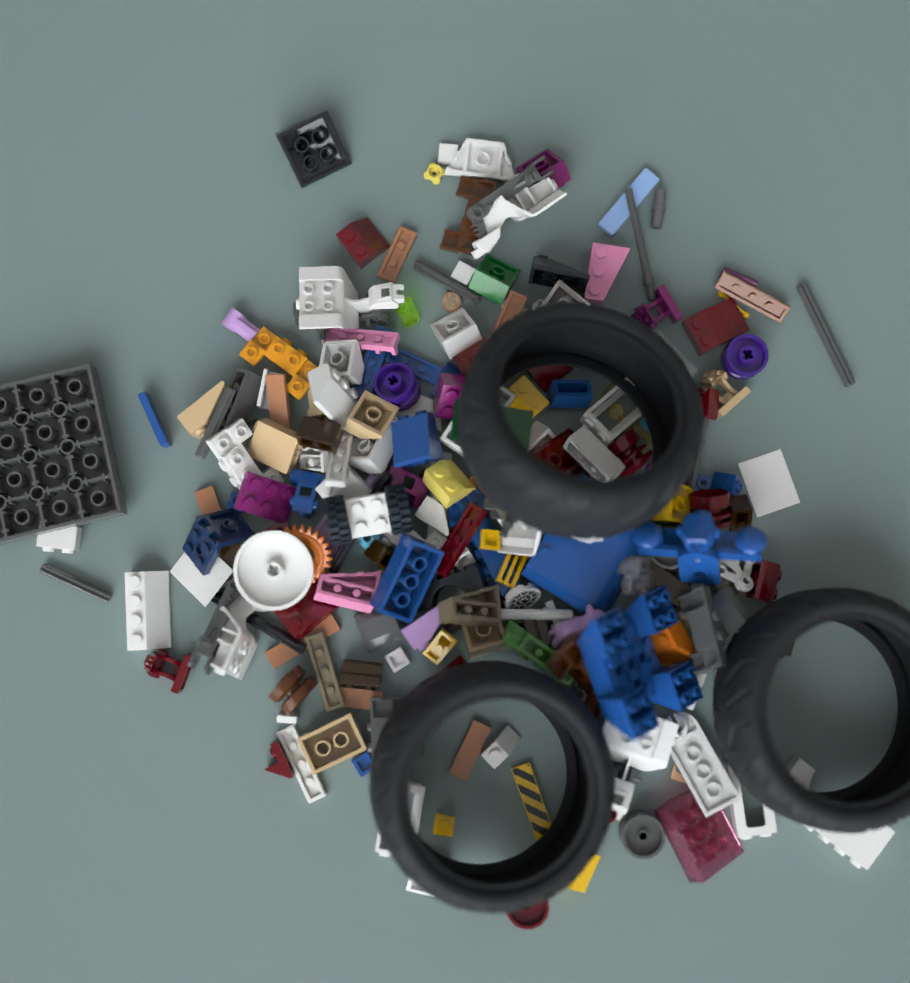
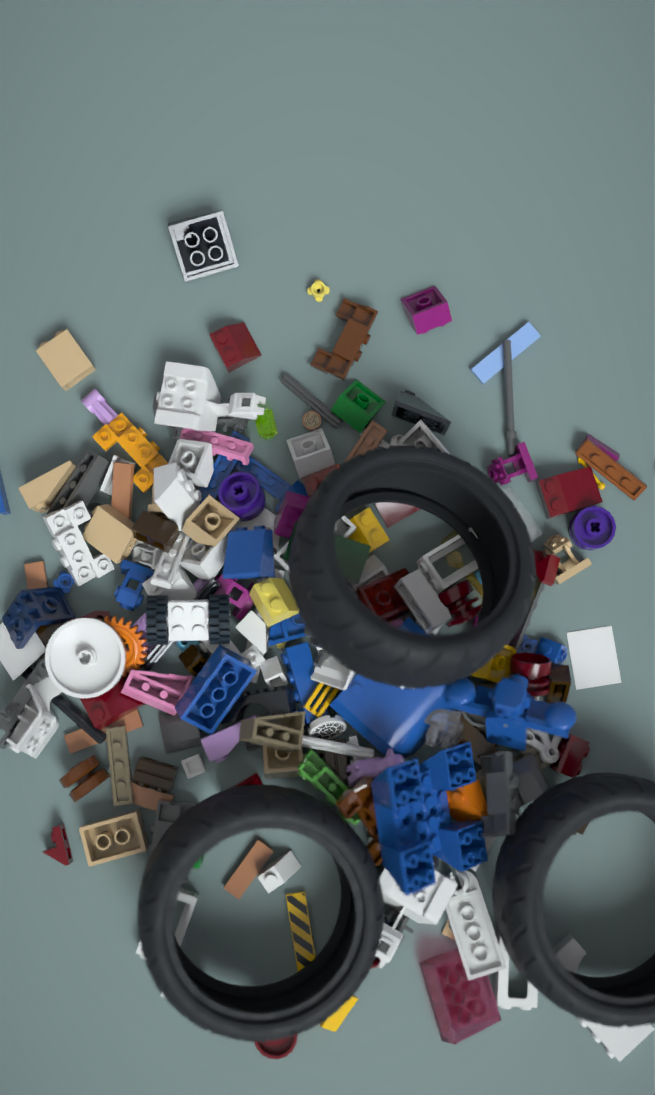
camera: 10 degrees right, 0 degrees up
(198, 284) = (65, 359): none -> tan brick
(216, 421) = (57, 498): dark grey axle -> none
(265, 497) = (91, 583): magenta plate -> none
(292, 718) = (78, 806): white tile -> none
(310, 783) = (86, 876): white tile -> none
(362, 763) = (139, 862): blue tile -> none
(397, 254) = (266, 364): nougat tile -> none
(440, 646) = (237, 761): yellow slope -> none
(444, 824) = (209, 938): yellow plate -> none
(447, 153) = (335, 273): white tile -> none
(460, 537) = (276, 658): dark red tile -> none
(463, 273) = (328, 395): white tile -> none
(482, 161) = (368, 286): white wing -> none
(489, 540) = (304, 665): yellow plate -> none
(512, 201) = (387, 332): white piece -> none
(569, 394) = (411, 534): blue piece -> none
(603, 268) = (466, 417): bright pink wedge -> none
(652, 834) = (405, 996): dark grey wheel -> none
(658, 208) = (533, 365): flat silver pin -> none

